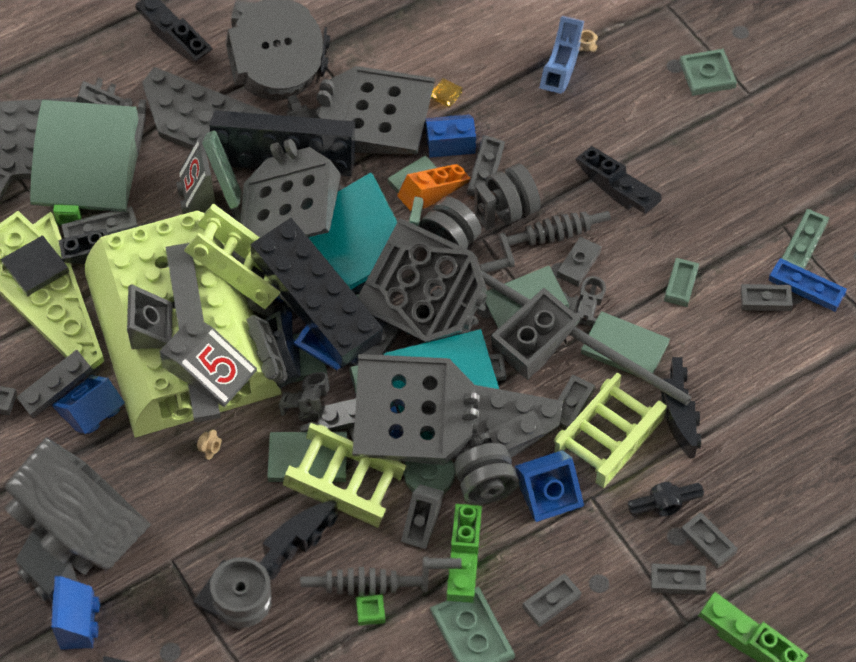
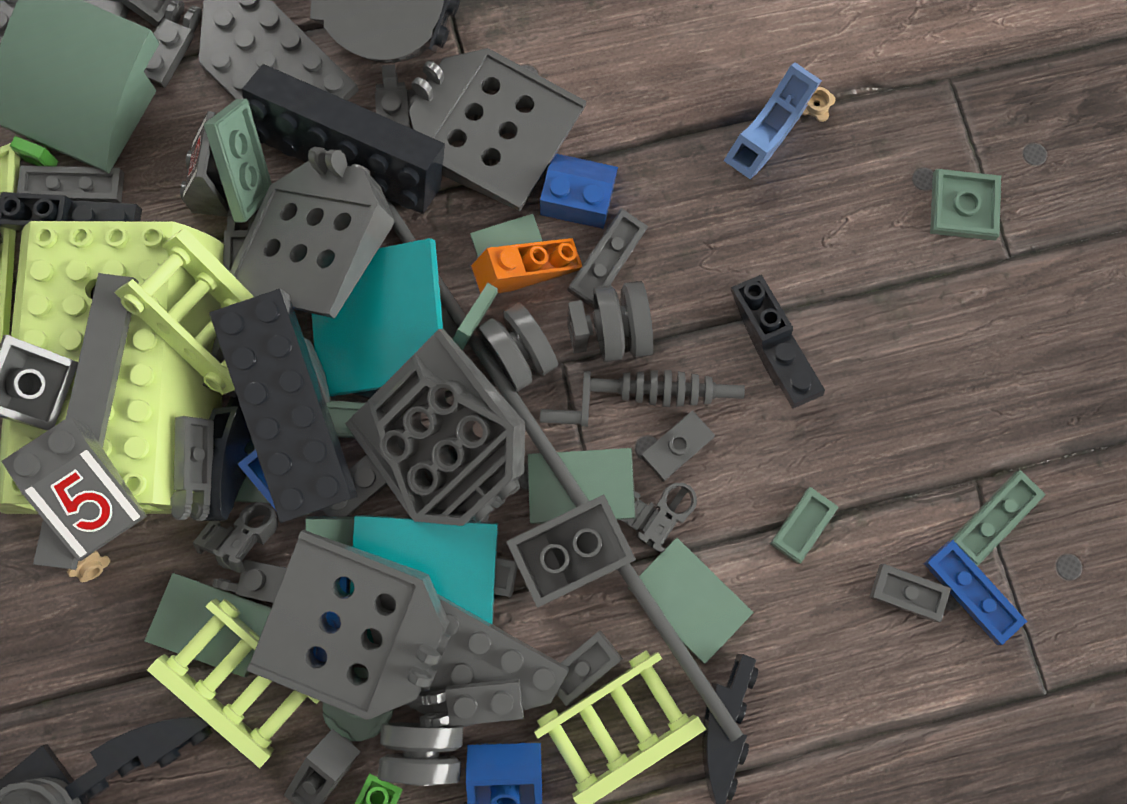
camera: 15 degrees right, 20 degrees up
(446, 92) = (599, 123): clear yellow tile -> none

